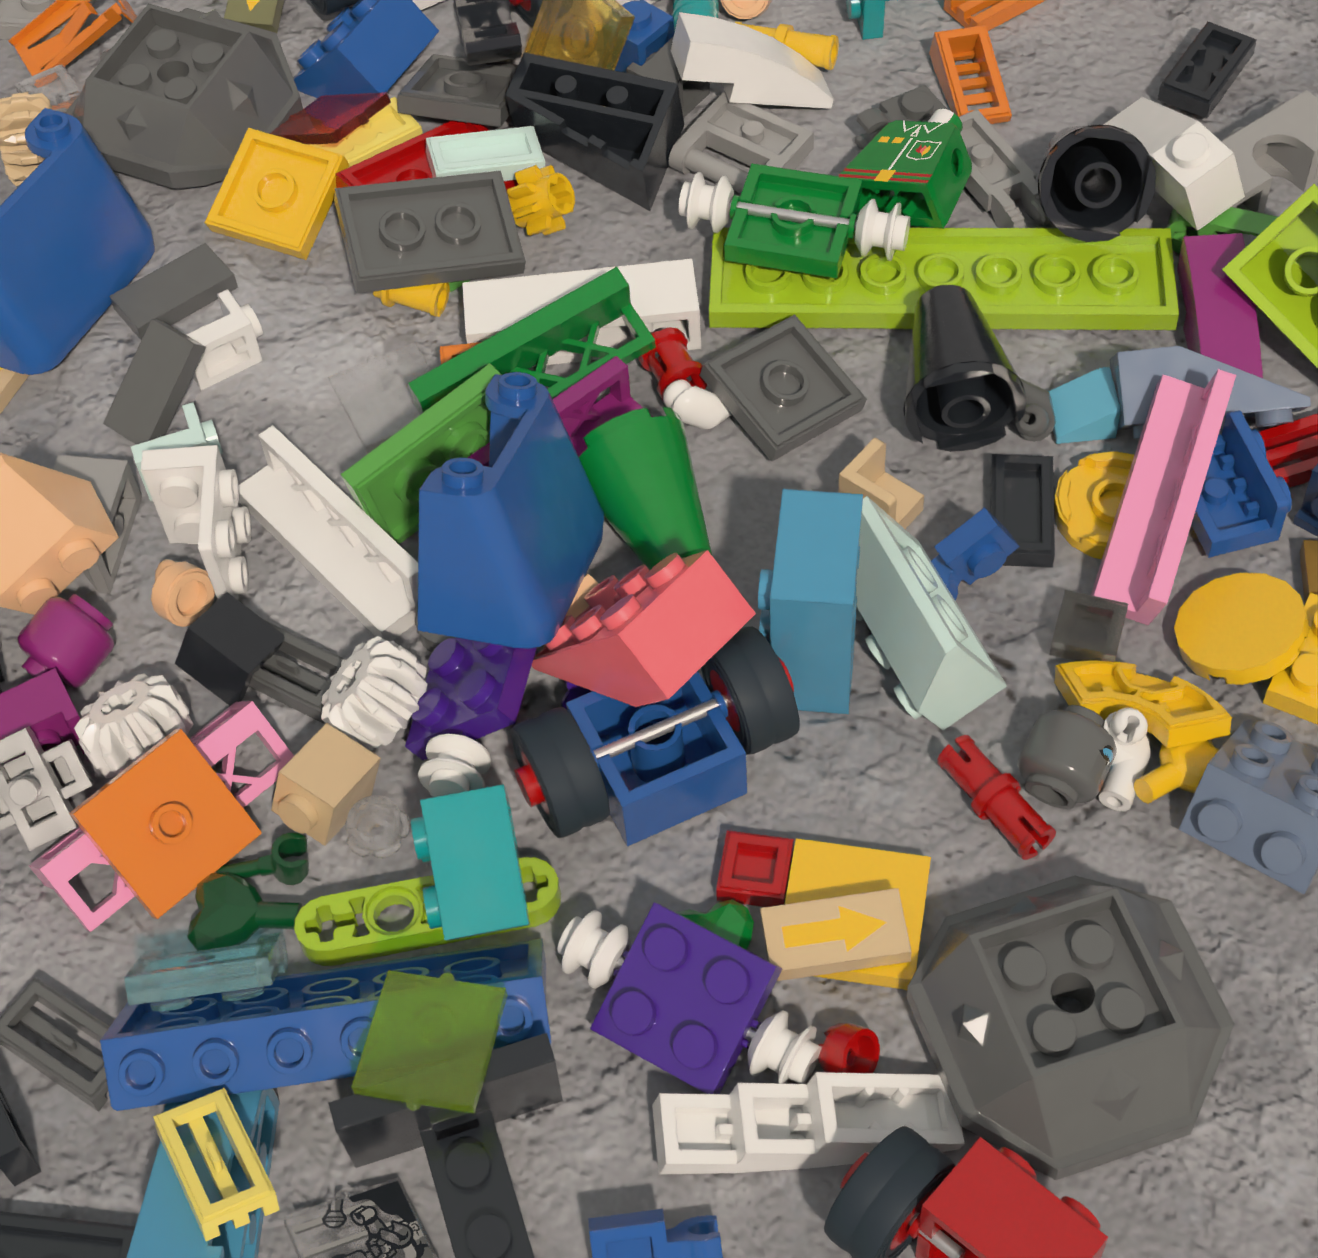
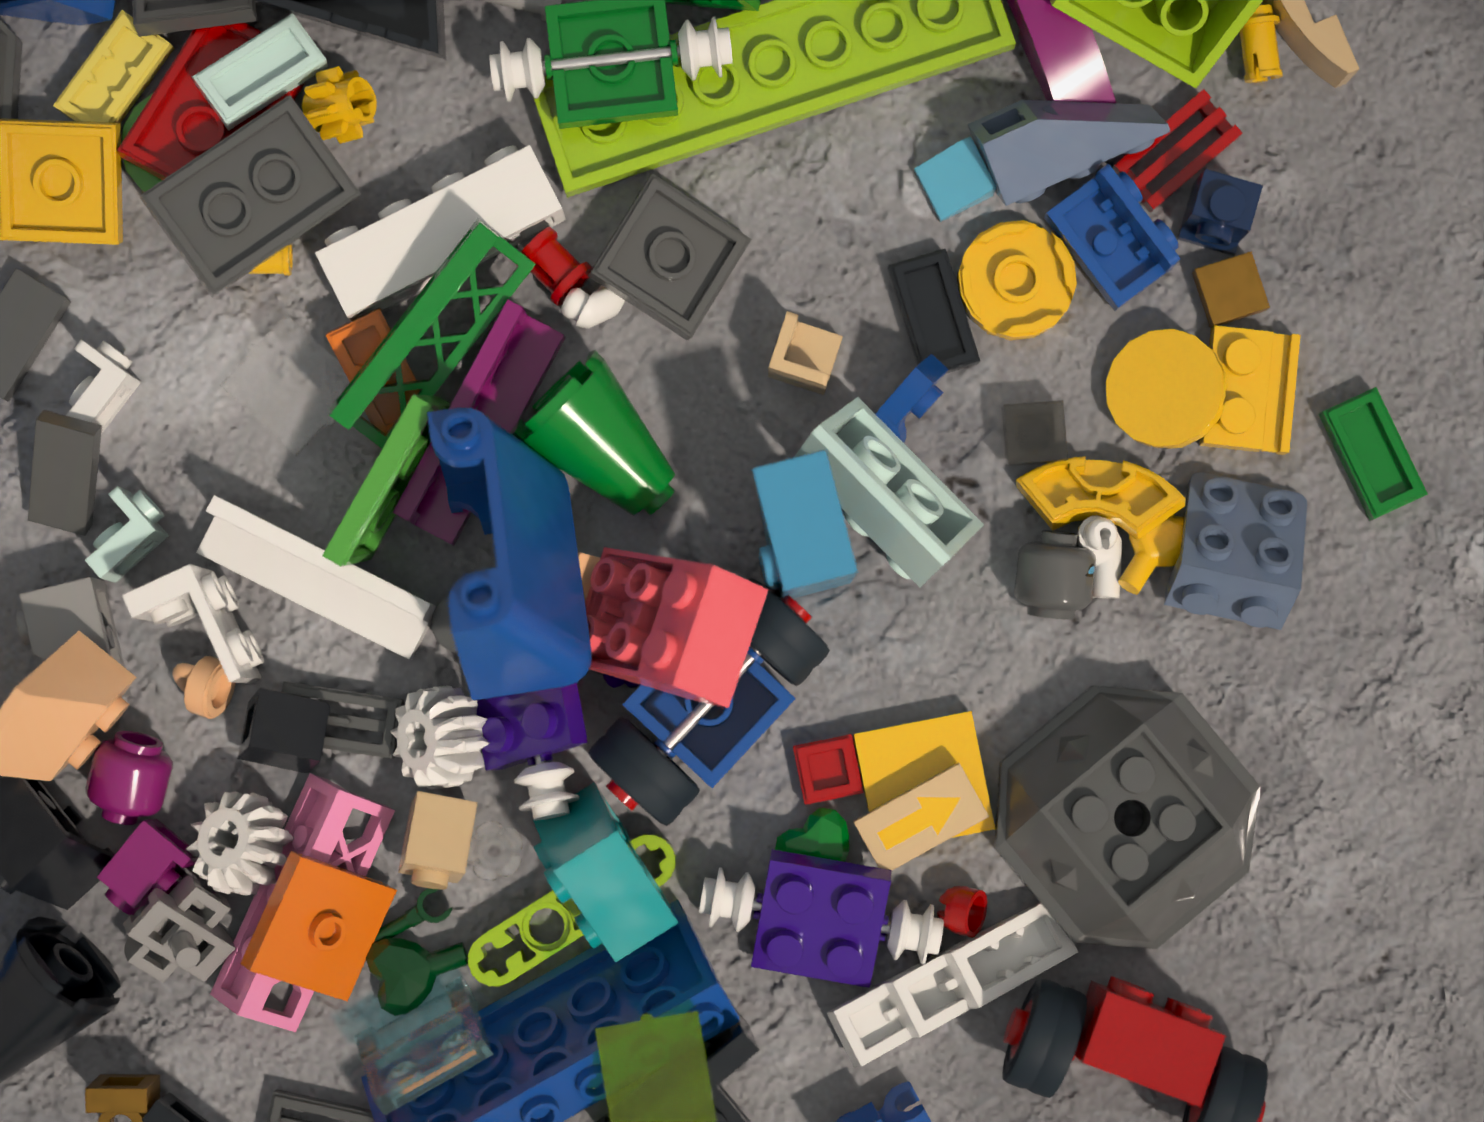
camera: 25 degrees left, 30 degrees up
(331, 117) = (67, 66): clear red piece -> none
(958, 374) = (829, 189): black cone -> none
(996, 797) = (1005, 630): red pin -> none
(1039, 413) = (906, 191): dark grey arm -> none
(1162, 494) = (1064, 281): bright pink fence -> none

